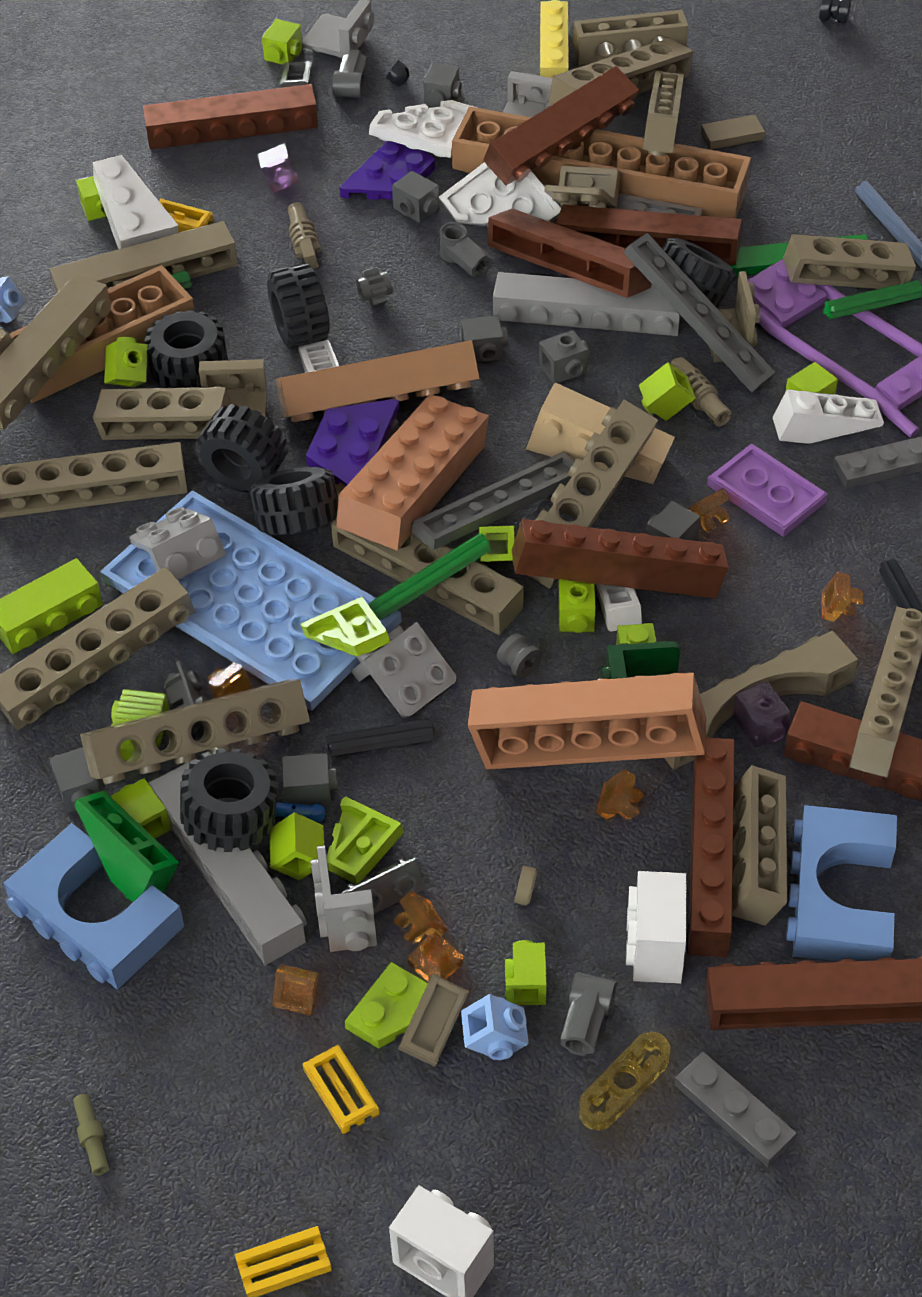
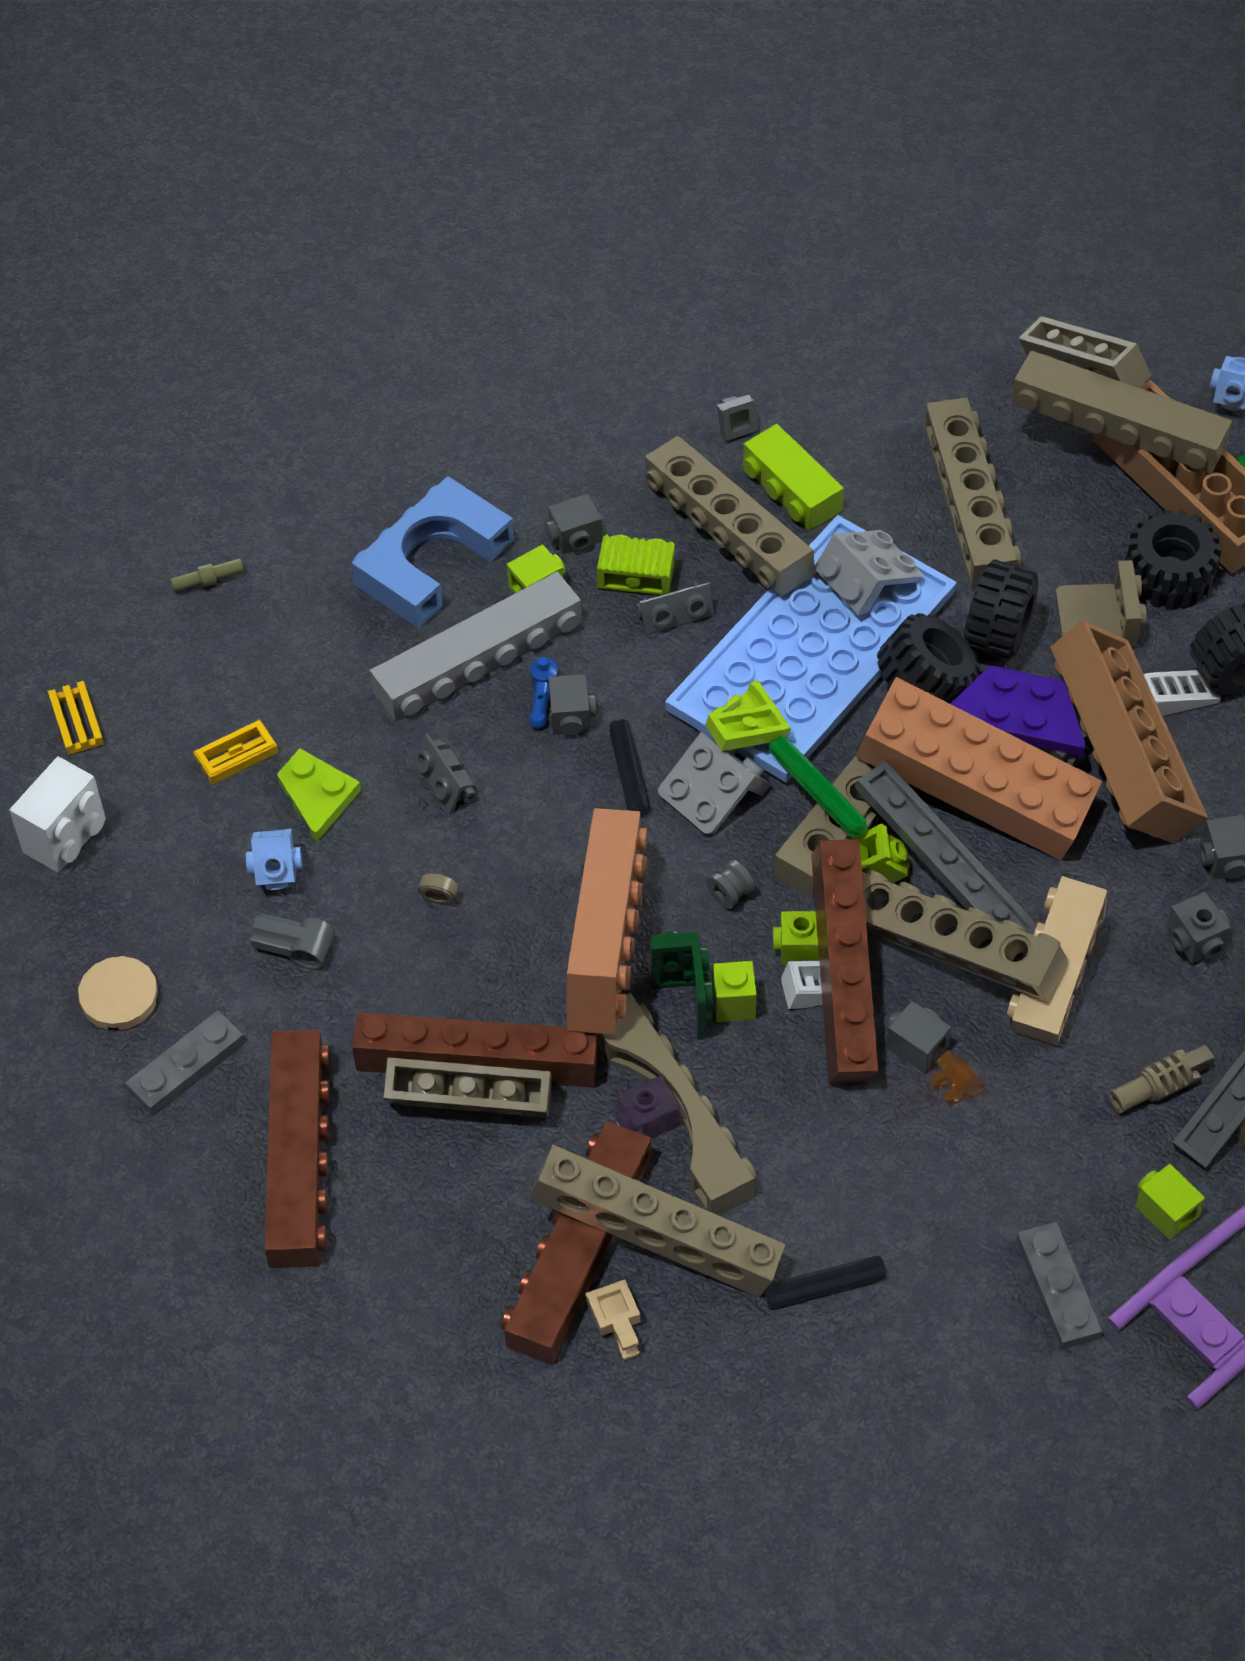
camera: 90 degrees right, 5 degrees up
(103, 744) = (587, 546): dark tan brick -> none
(125, 362) = (1138, 501): lime brick -> none
(125, 847) = (485, 557): green slope -> none
(157, 412) = (1068, 546): dark tan brick -> none
(228, 823) = (515, 596): black tyre -> none
(229, 681) = (686, 634): clear orange tile -> none
(295, 845) = (488, 698): lime brick -> none
(295, 989) = (333, 708): clear orange tile -> none
(342, 917) = (407, 720): light grey bracket -> none
(360, 840) = (498, 752): lime wing -> none
(422, 915) = (406, 803): clear orange tile -> none
(433, 1020) = (286, 810): dark tan tile -> none
(435, 957) = (364, 820): clear orange tile -> none
(526, 974) = (337, 889): lime brick -> none
(616, 796) = (543, 970): clear orange tile -> none
(620, 1097) = (226, 987): clear yellow beam -> none
(655, 1181) = (118, 993): none -> tan tile
(657, 927) = (365, 983): white brick -> none
(666, 392) = (1144, 1034): lime brick -> none
(767, 490) = (1003, 1148): medium lavender tile -> none
(819, 417) = (1120, 1213): white slope -> none
(820, 925) = (380, 1140): medium blue arch -> none
(839, 597) = (820, 1201): clear orange tile -> none

